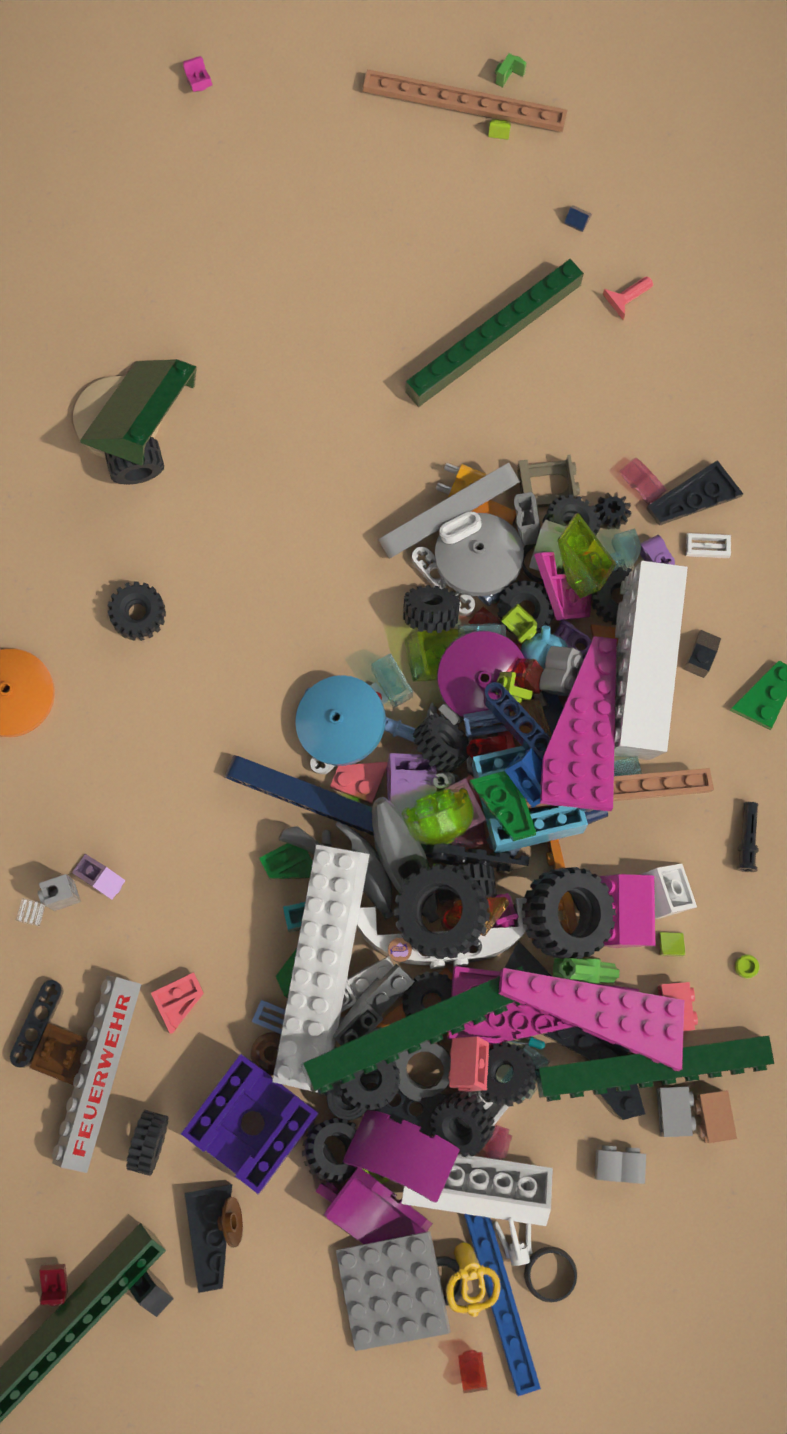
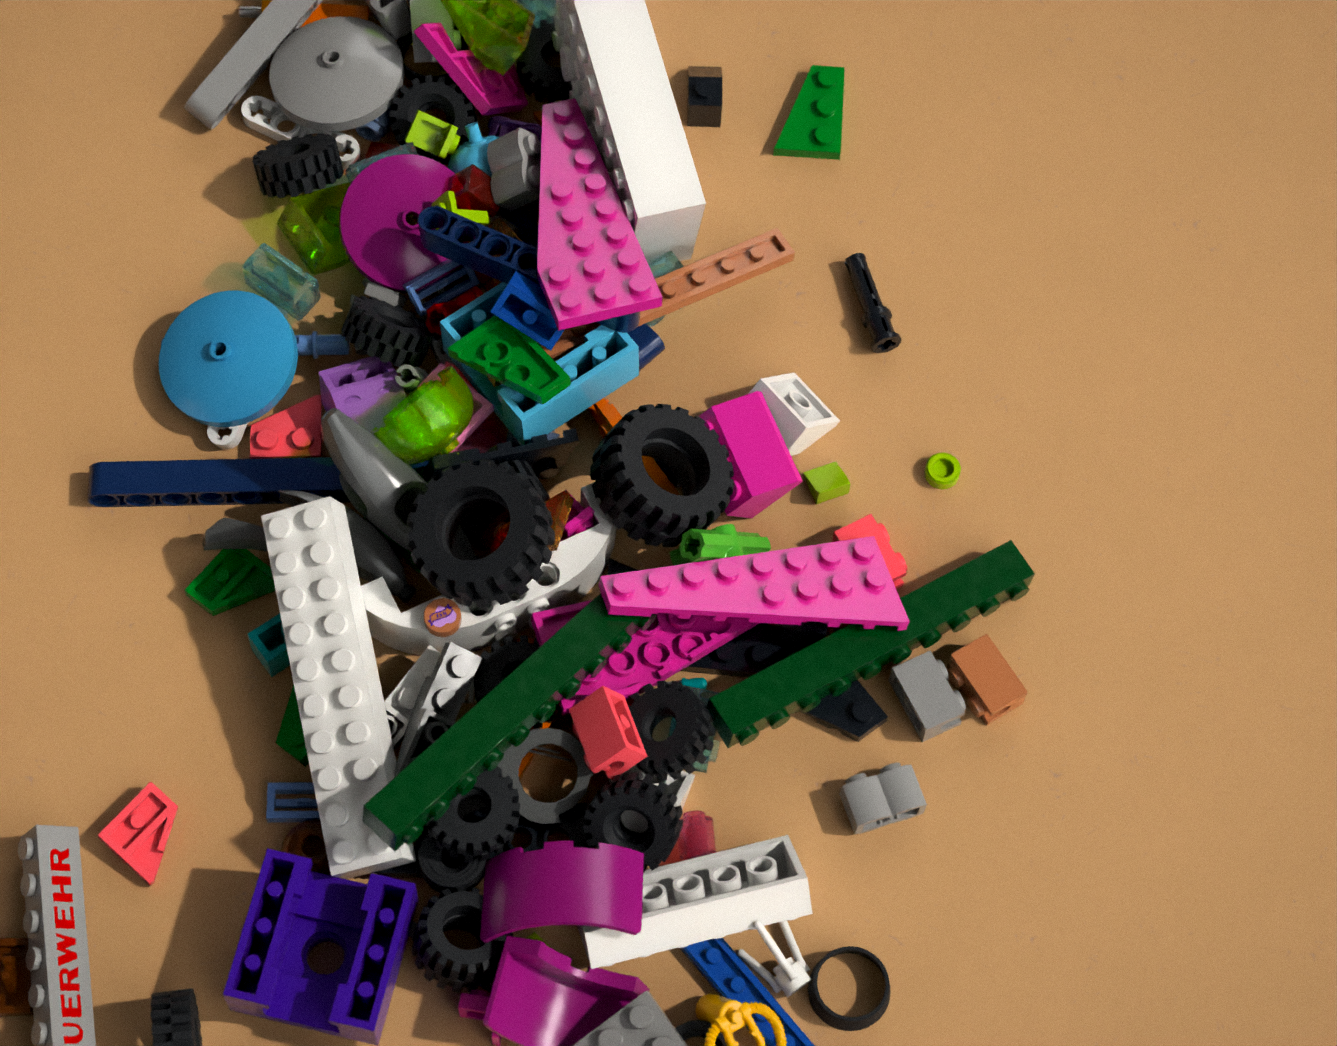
camera: 25 degrees left, 10 degrees down
(460, 527) = (295, 45): white tile -> none

